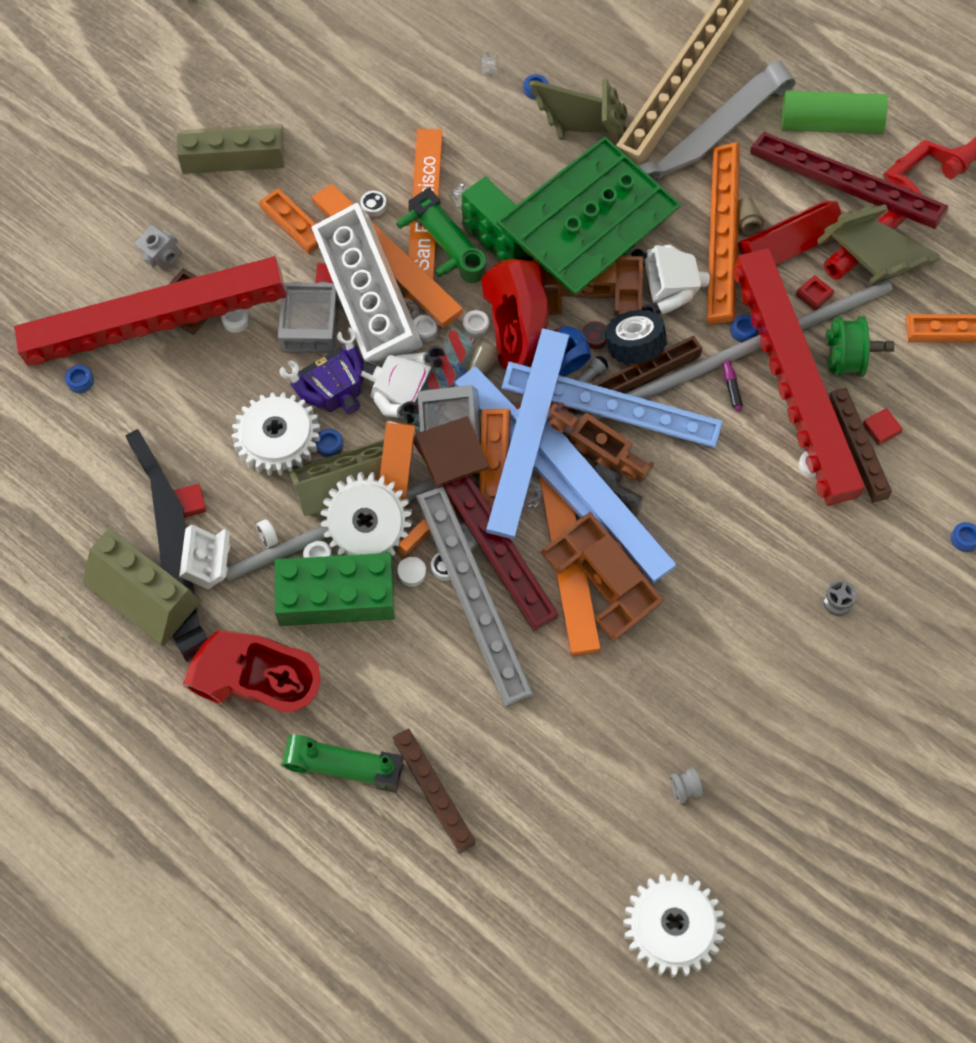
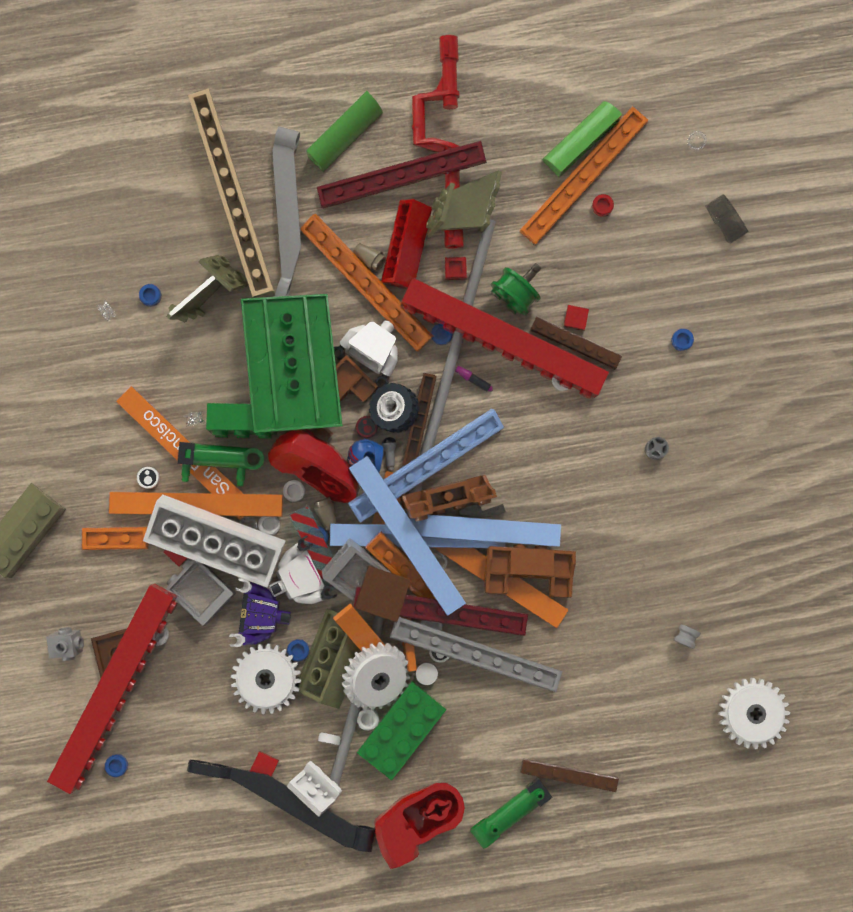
camera: 50 degrees left, 20 degrees up
(138, 587) = (301, 843): olive slope -> none

